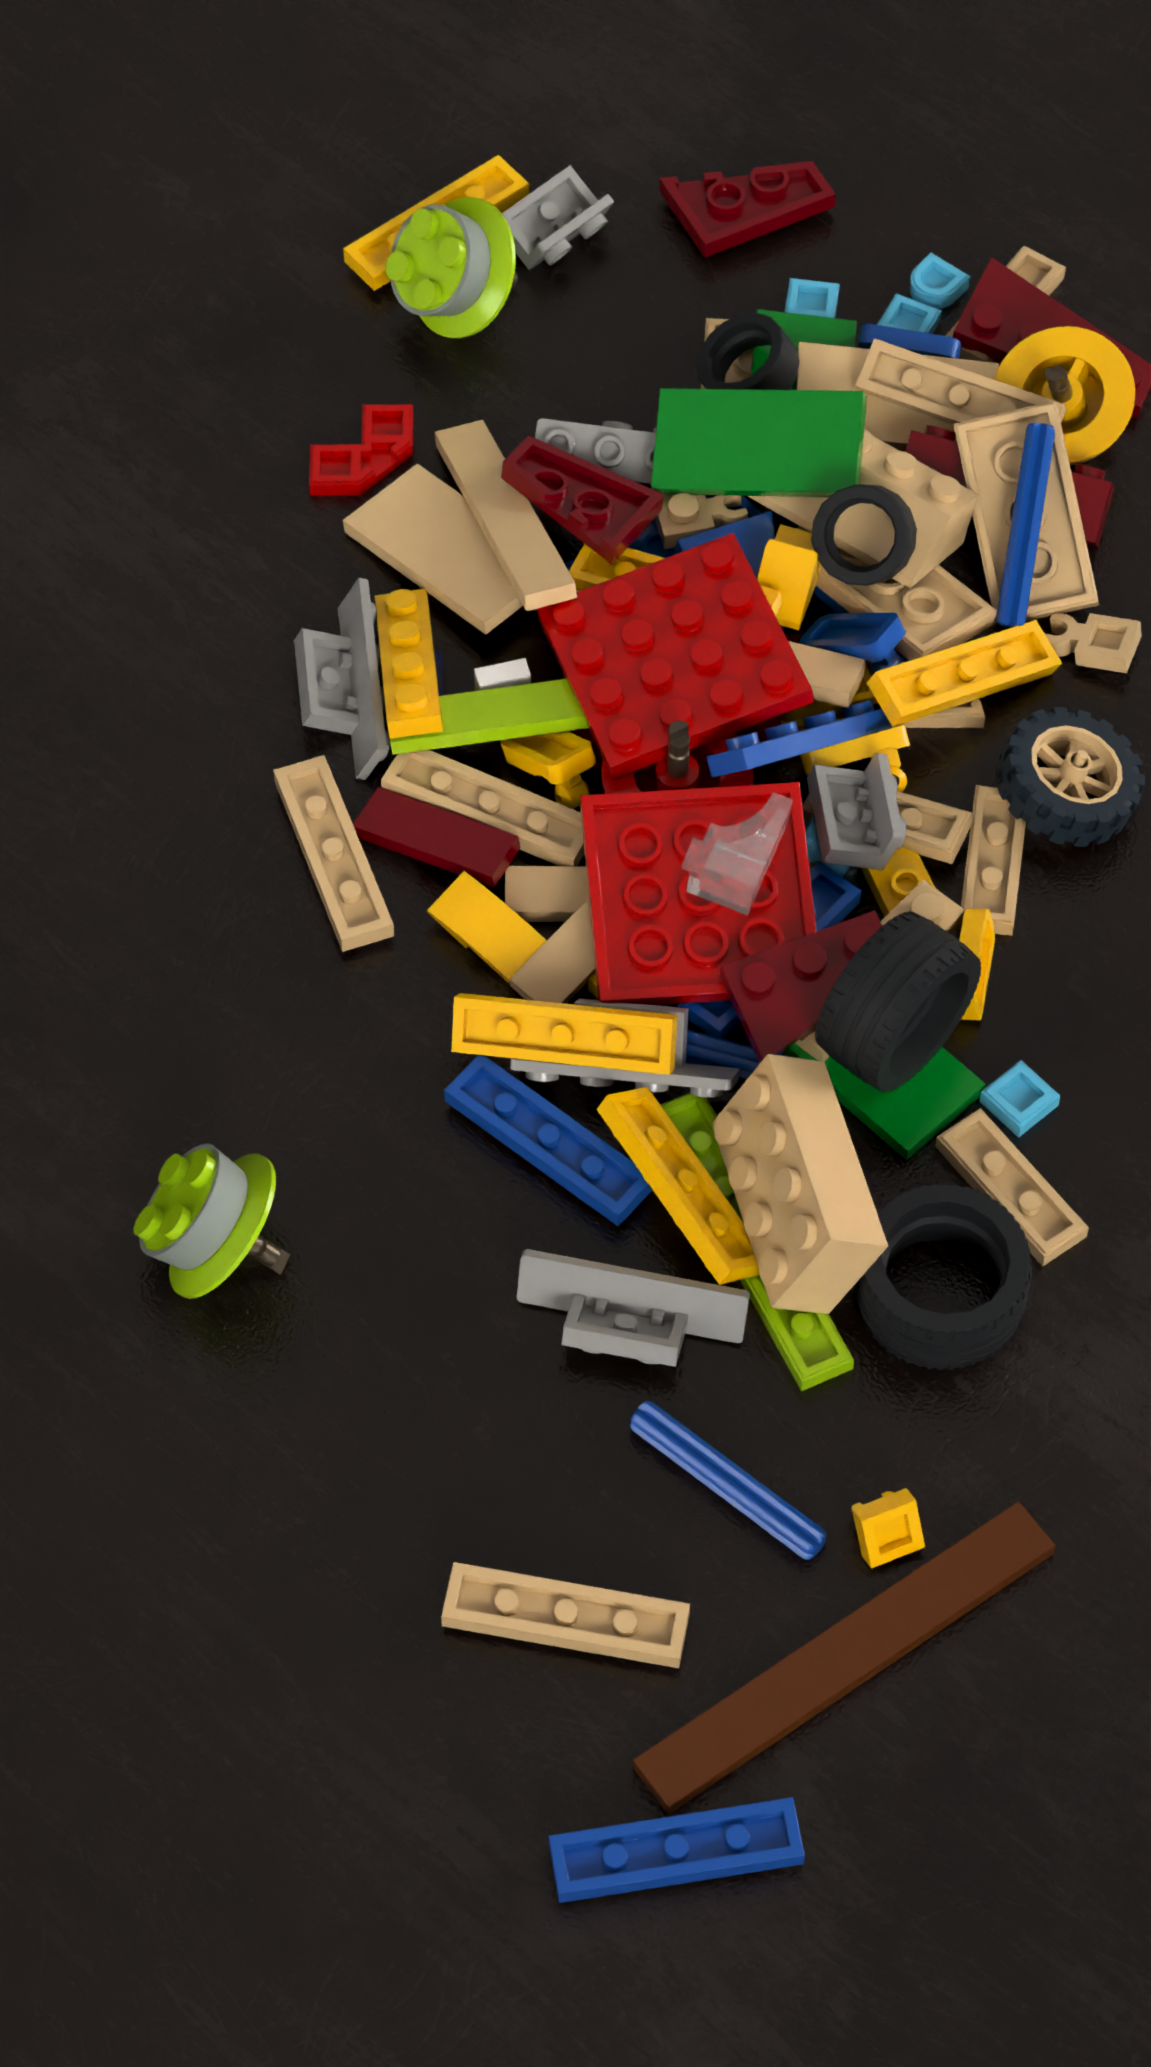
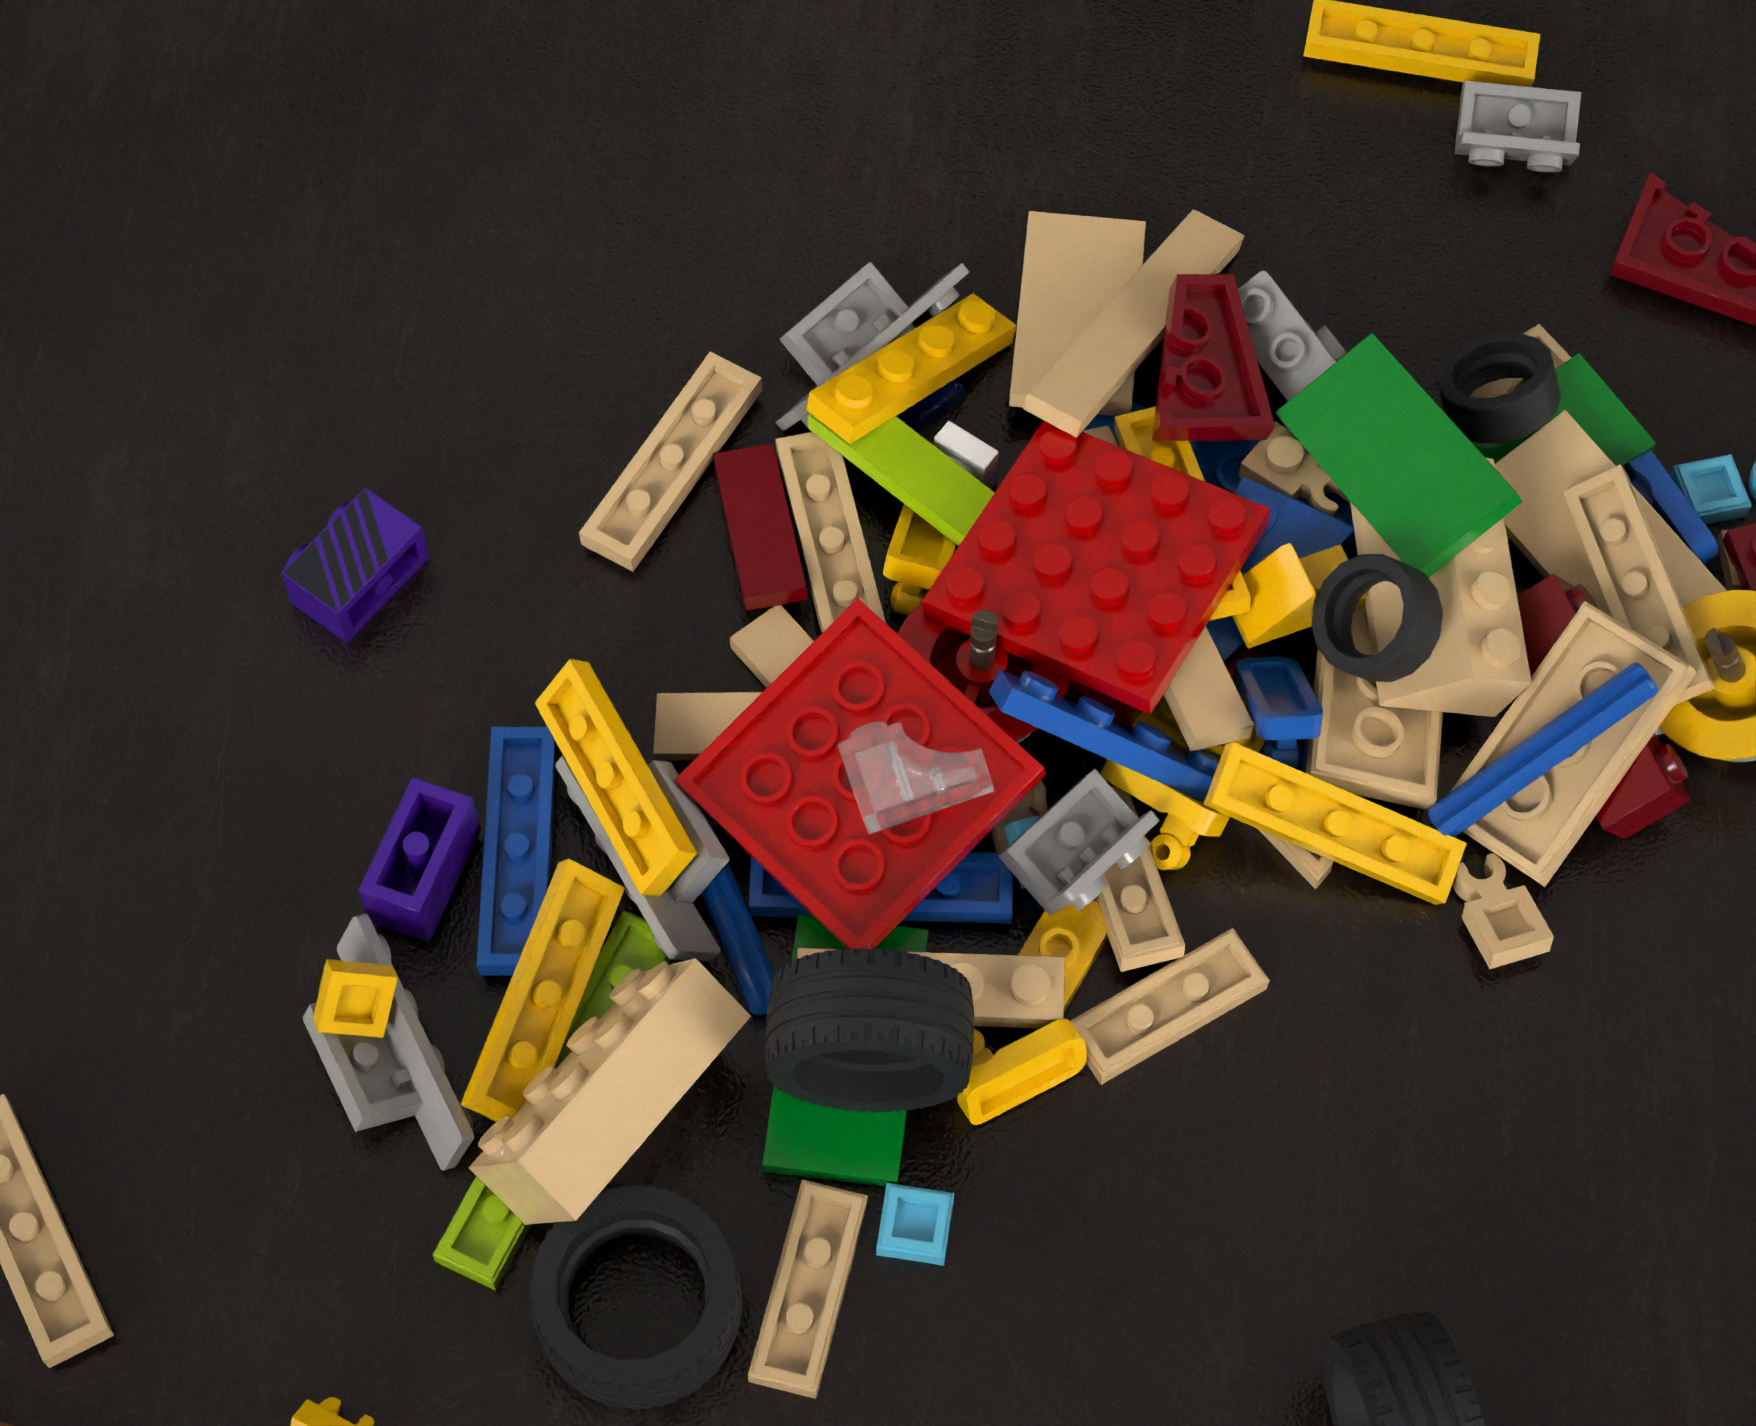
camera: 50 degrees right, 5 degrees up
(209, 1218) = (180, 636): lime piece -> none
(232, 1089) = (355, 564): none -> dark purple brick
(358, 467) = (1102, 182): red tile -> none
(454, 265) = (1364, 84): lime piece -> none
(486, 925) = (696, 633): yellow slope -> none
(512, 1191) = (420, 859): none -> dark purple brick
(587, 1291) = (354, 998): none -> yellow tile
(728, 1480) = (278, 1268): blue axle -> none
(787, 985) = (817, 911): dark red wing -> none
(812, 298) = (1651, 394): medium azure tile -> none
(1063, 806) = (1360, 970): black wheel -> none

